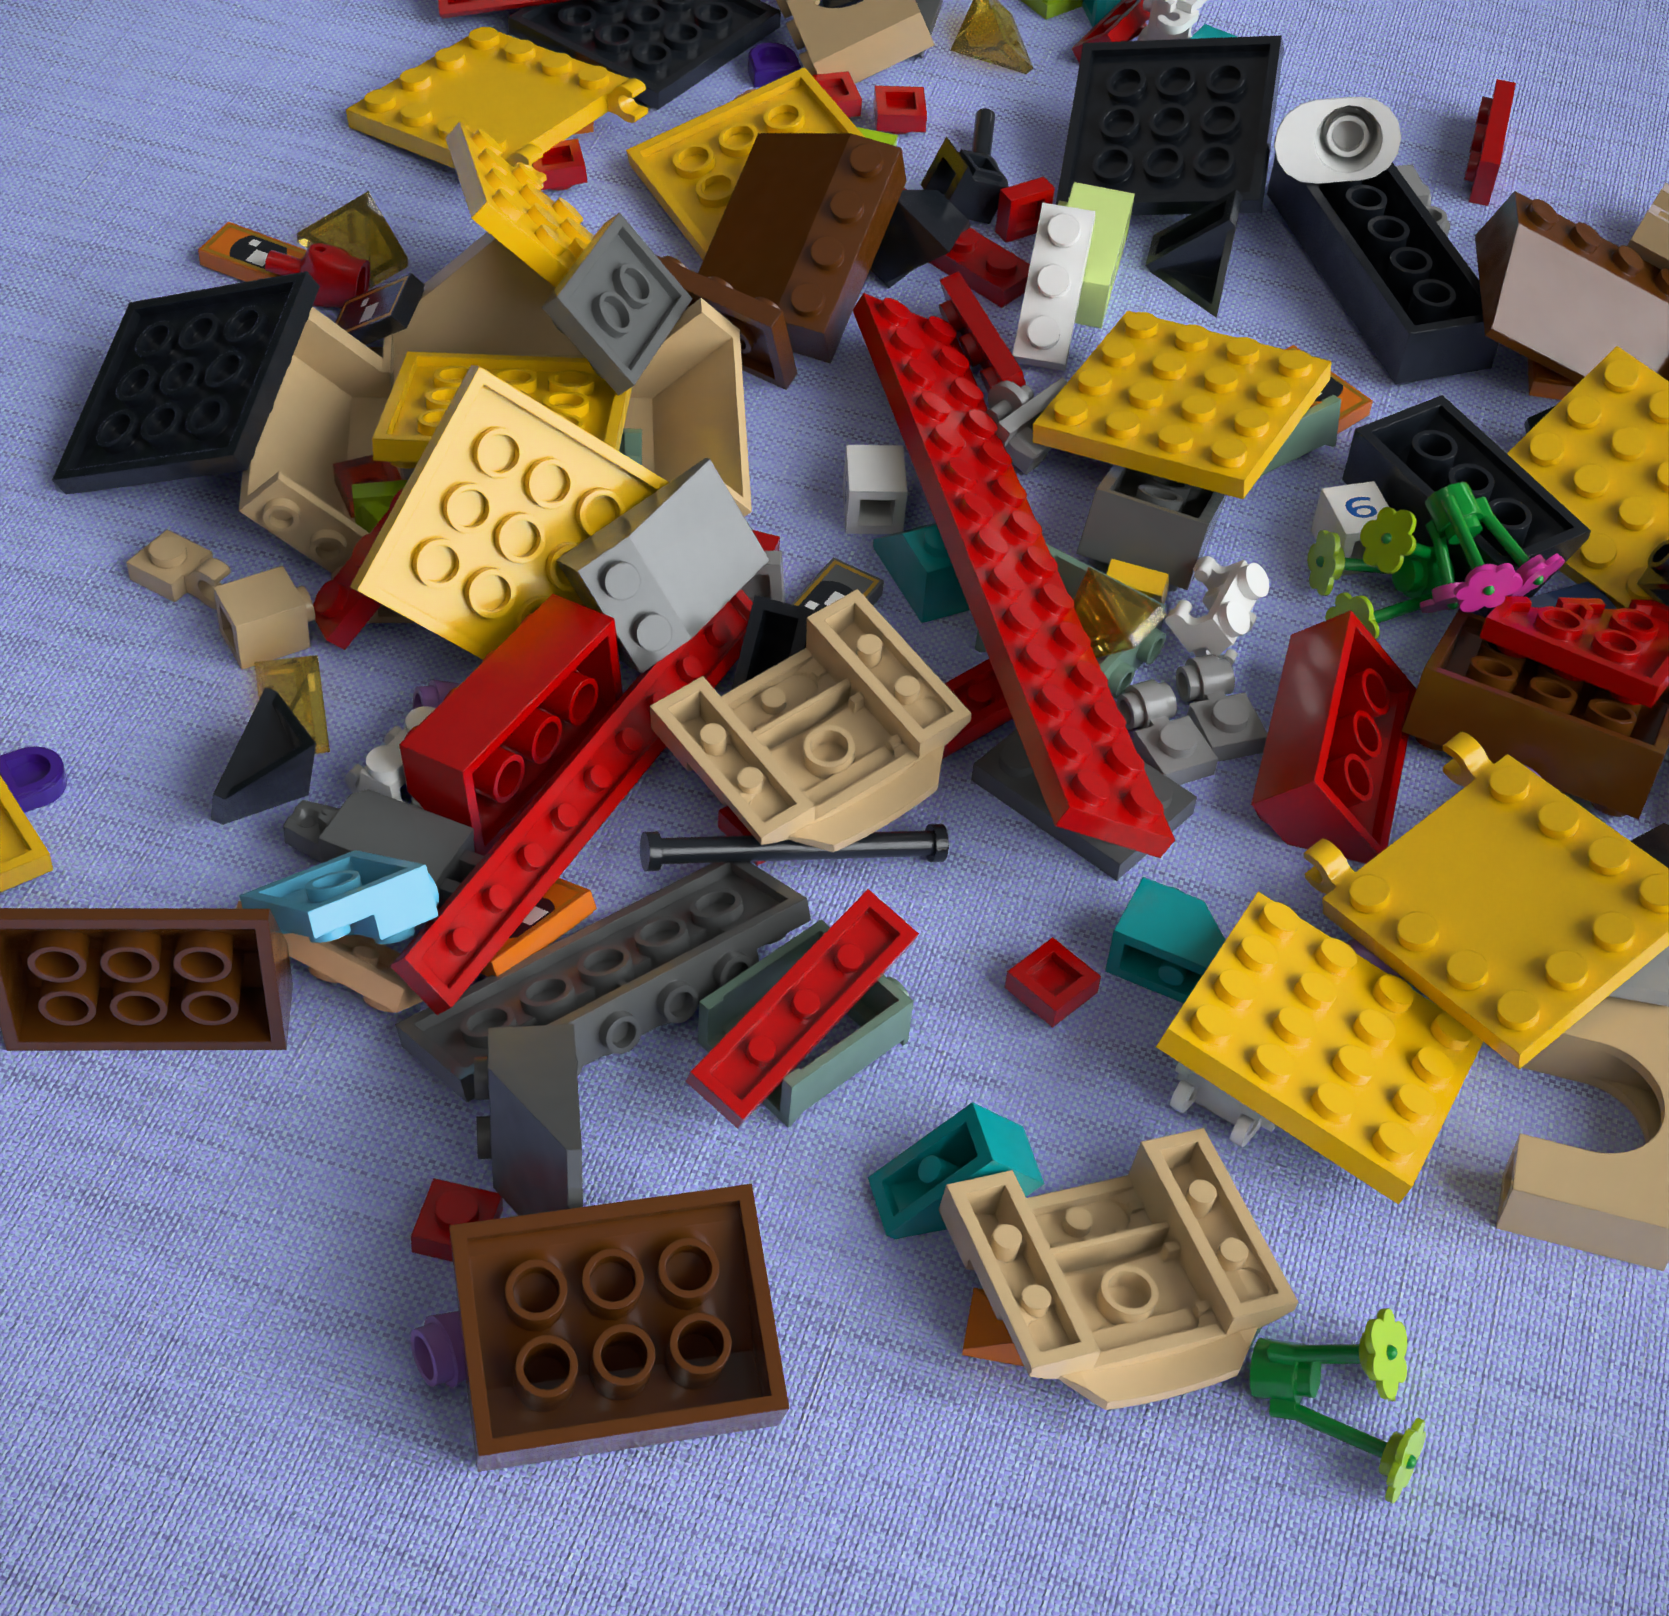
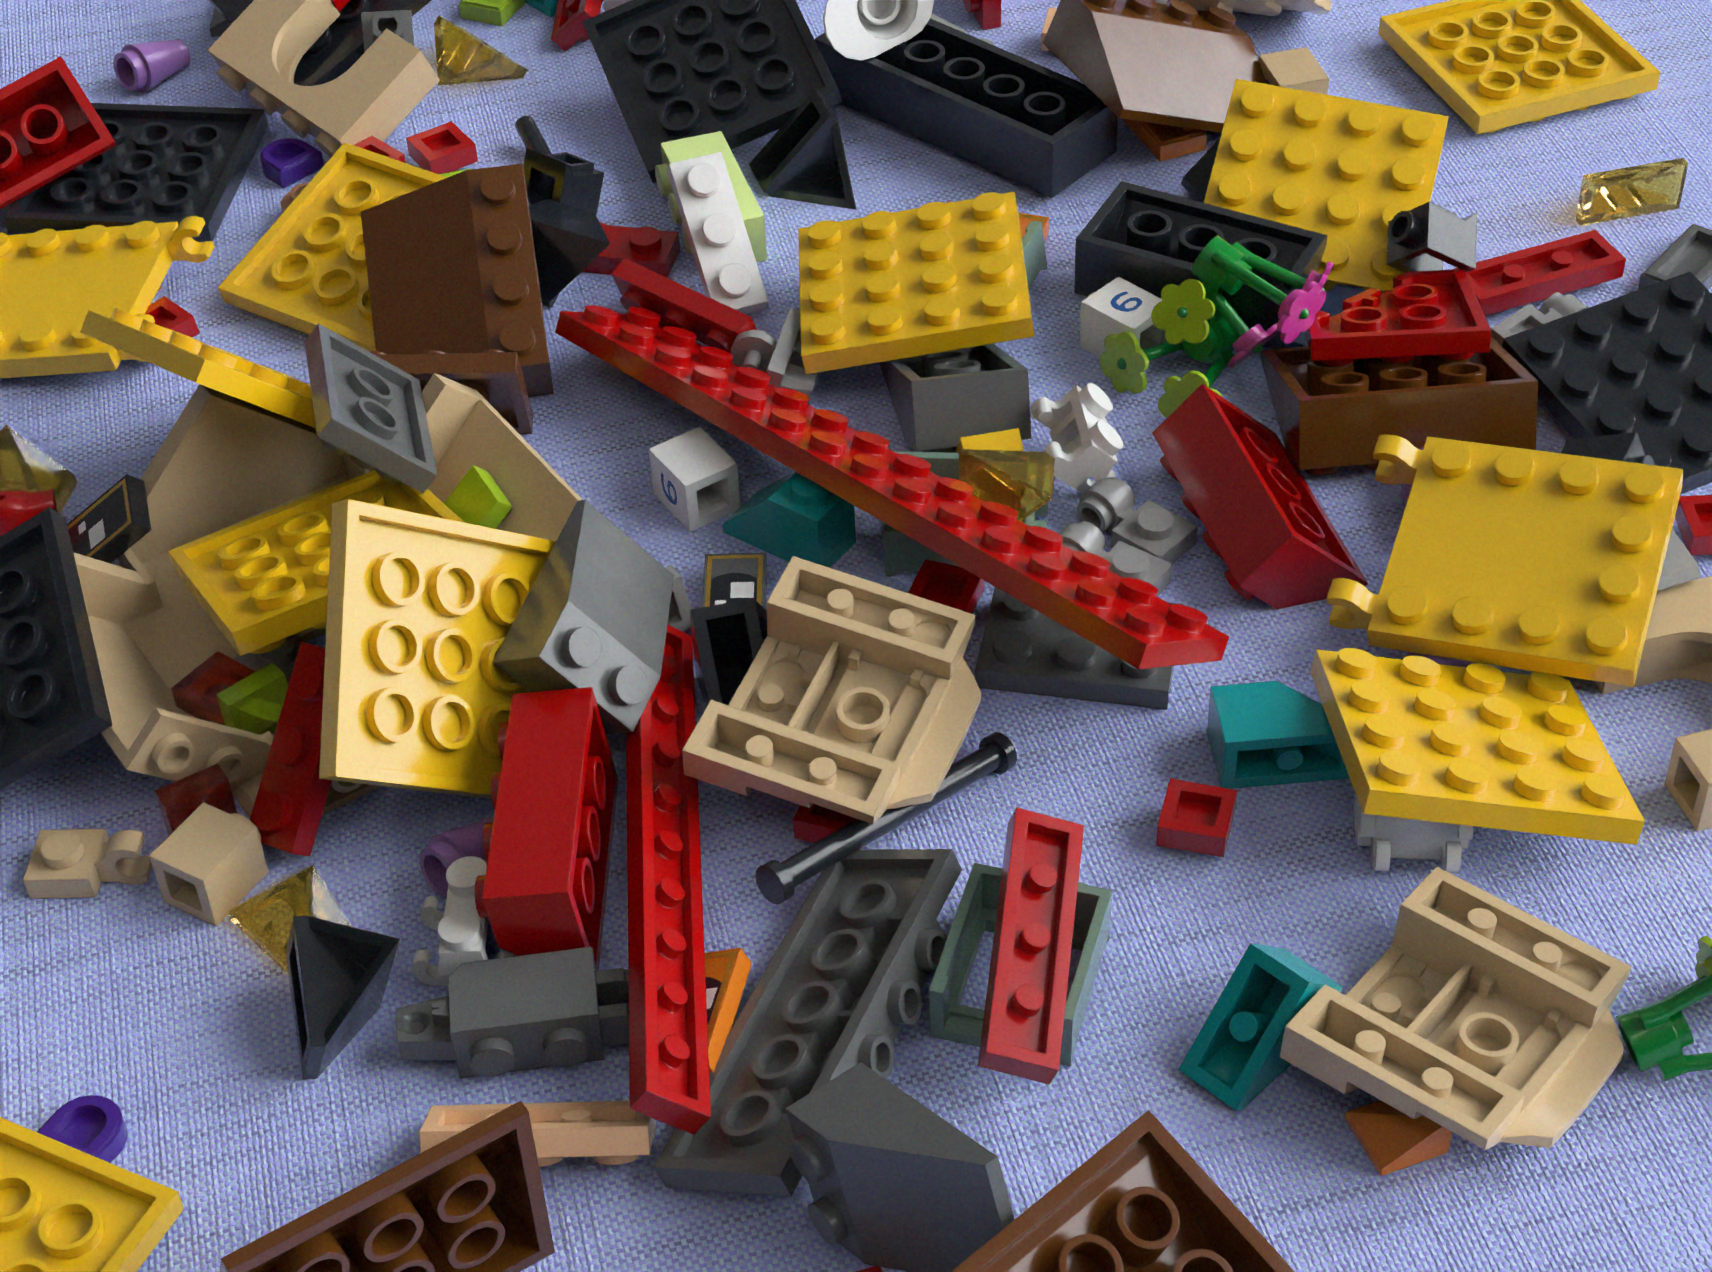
camera: 25 degrees left, 5 degrees down
(297, 558) = (184, 796): none -> clear red plate
(351, 897) = (545, 1063): medium azure plate -> none
(672, 430) = (479, 499): none -> lime tile
(1021, 208) = (626, 187): red plate -> none

